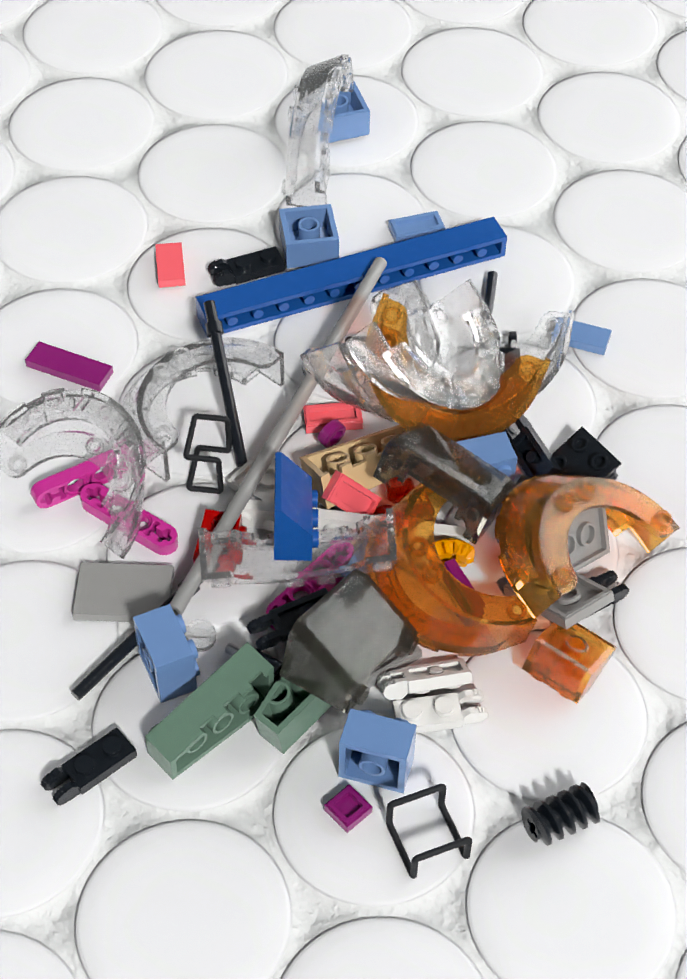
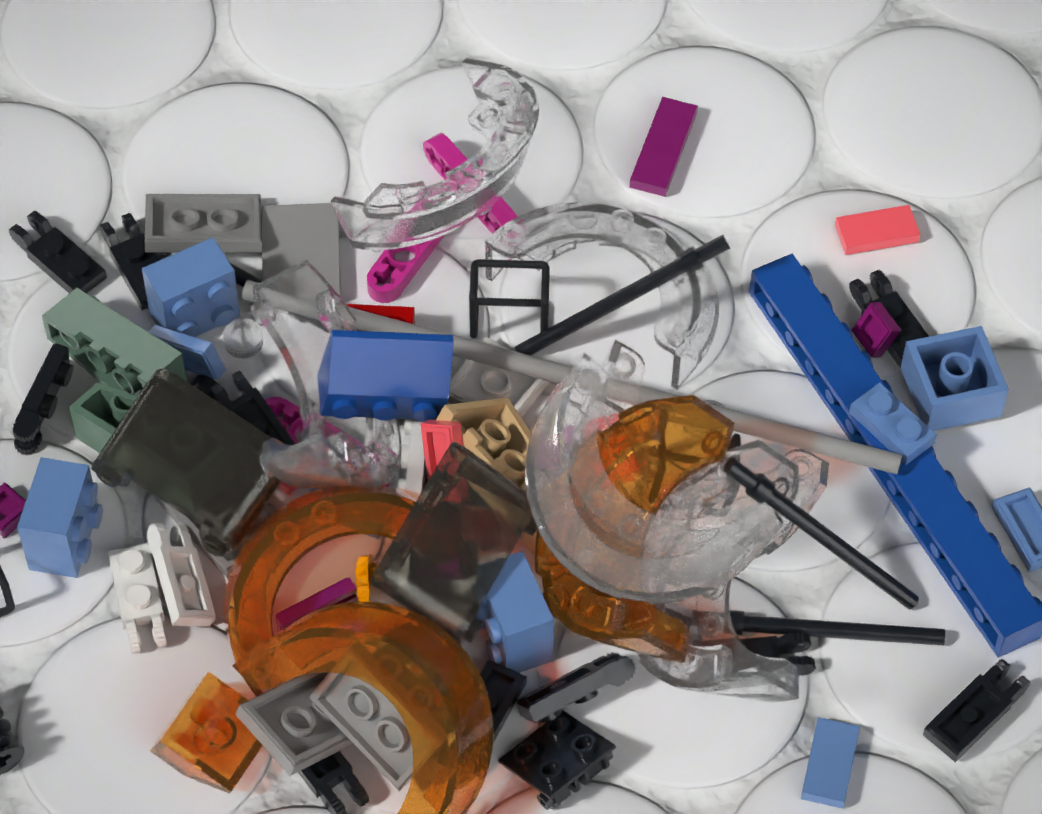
camera: 85 degrees right, 5 degrees up
(84, 653) = (185, 220): none -> light grey tile
(109, 706) = (130, 256): none -> black hinge
(225, 650) = (198, 354): none -> medium blue tile
(246, 774) = (42, 399): none -> black hinge
(258, 268) = (876, 330): none -> magenta tile
(346, 262) = (892, 423): none -> medium blue plate
(428, 299) = (763, 490): none -> black bar
(547, 264) = (974, 711): none -> black hinge

